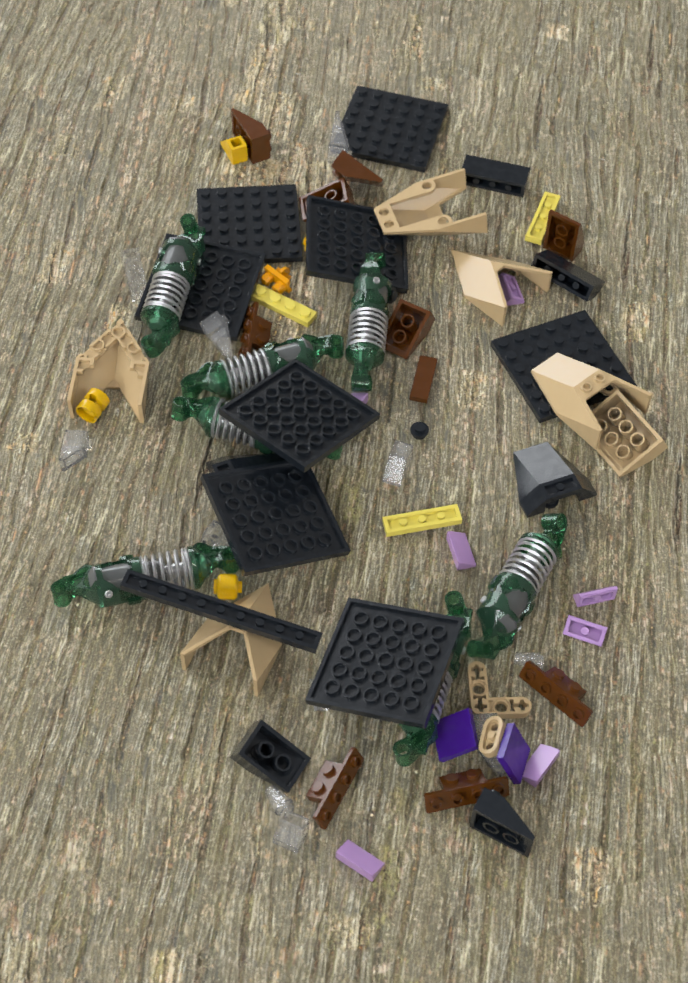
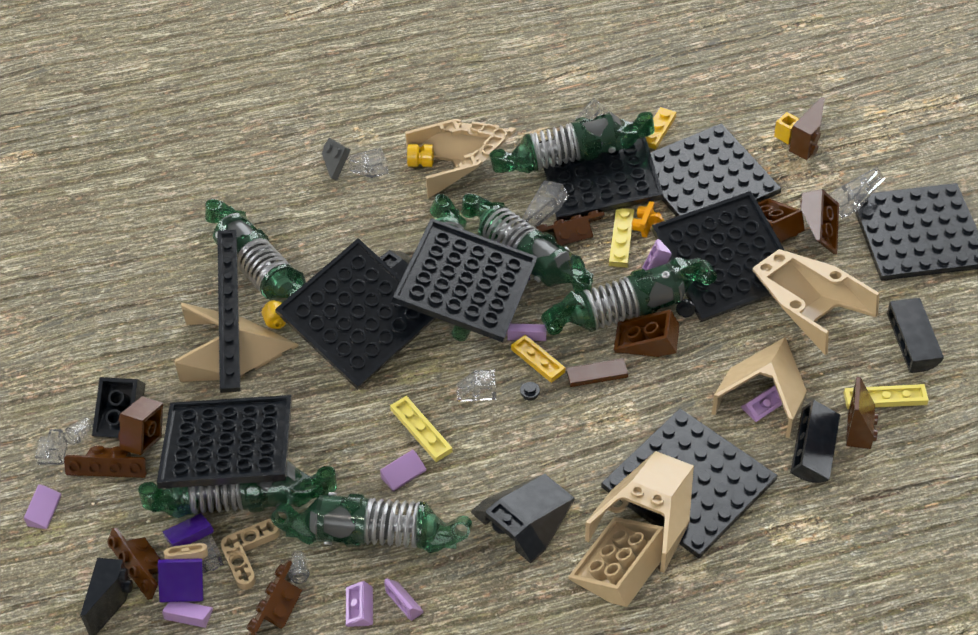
camera: 70 degrees right, 5 degrees down
(46, 472) = (335, 157): none -> dark grey wing
(164, 225) = (662, 122): none -> yellow plate
(317, 734) = (140, 425): none -> reddish brown brick
(334, 290) = (658, 255): none -> lavender slope
(395, 409) = (538, 358): none -> yellow plate

